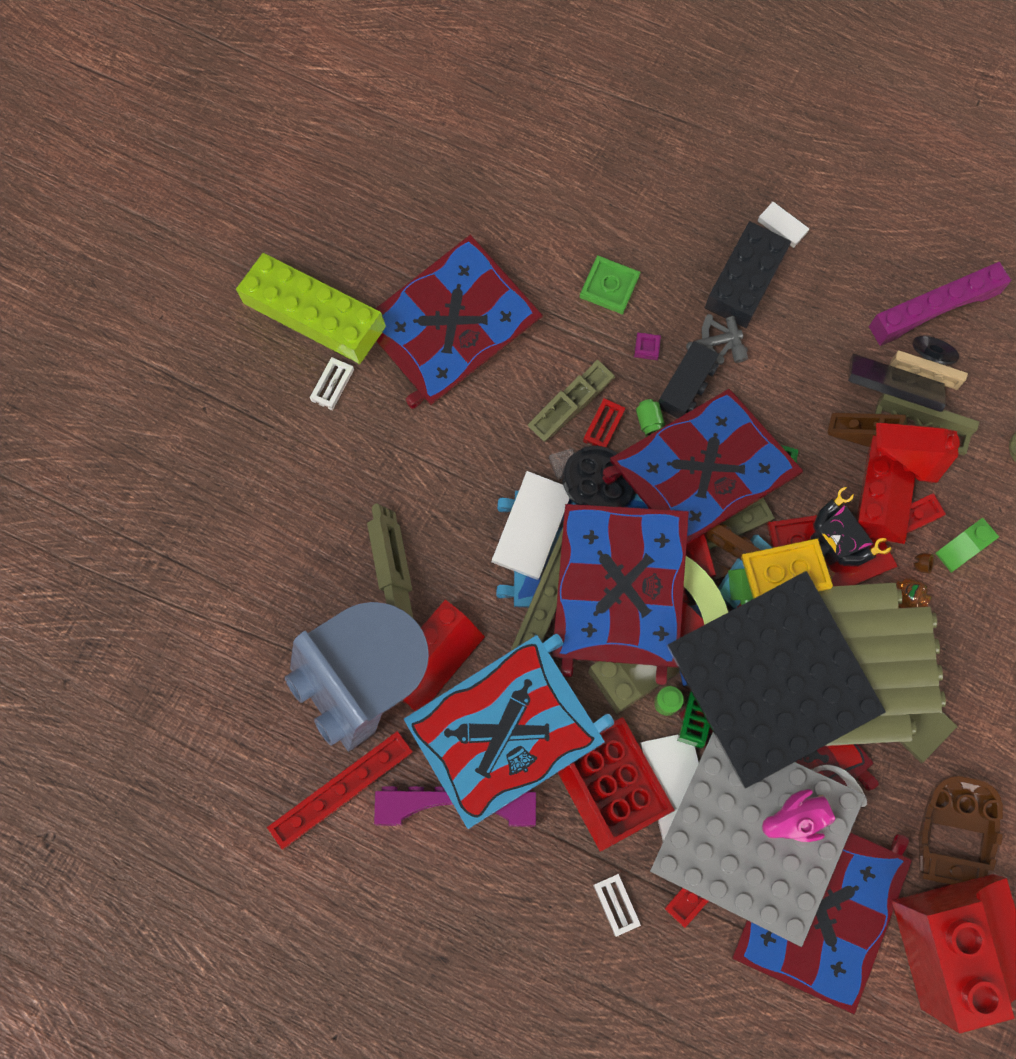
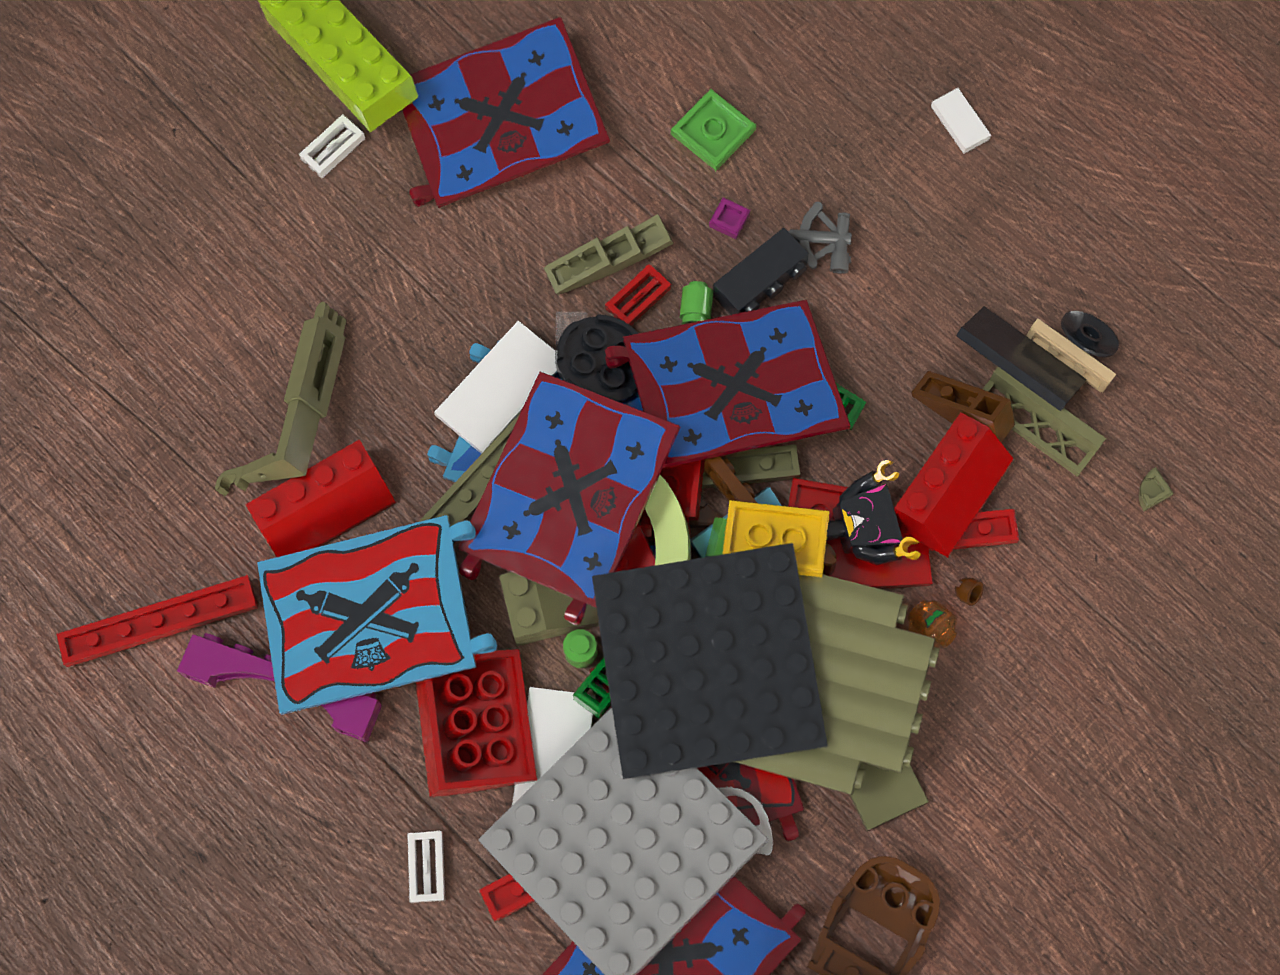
camera: 25 degrees right, 0 degrees up
(357, 669) = (221, 481): sand blue plate -> none
(747, 274) = (887, 167): black brick -> none
(800, 818) = (671, 836): dark pink animal -> none
(919, 448) = (1012, 449): red wedge -> none
(967, 545) = (1030, 586): bright green slope -> none
(971, 288) = (1175, 270): magenta arch -> none

